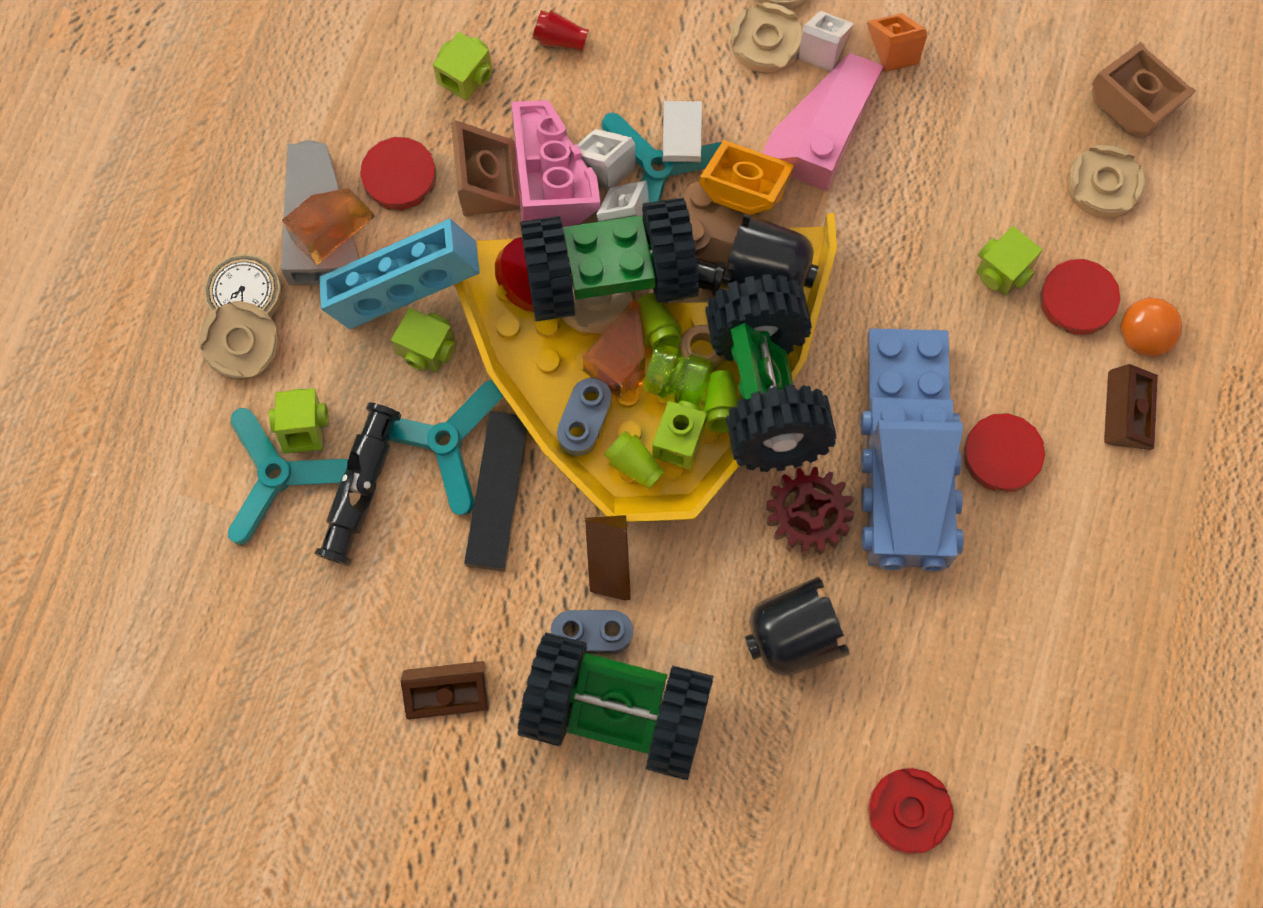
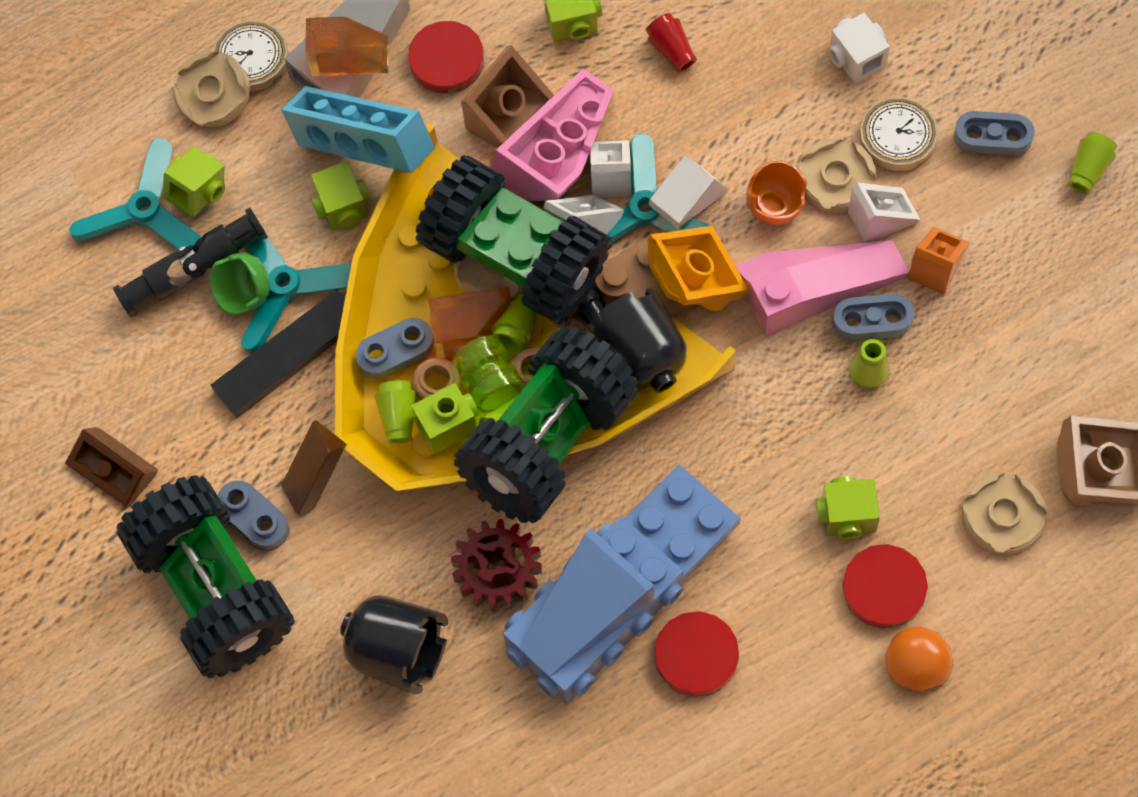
camera: 45 degrees right, 5 degrees down
(413, 468) = (239, 283): none -> bright green hair
(634, 399) = (430, 367): none -> medium nougat piece
(744, 81) = (776, 193): none -> orange hair
(890, 118) = (871, 315): none -> sand blue plate
(925, 149) = (870, 364): none -> lime cone
(1131, 407) = (838, 709): reddish brown slope -> none

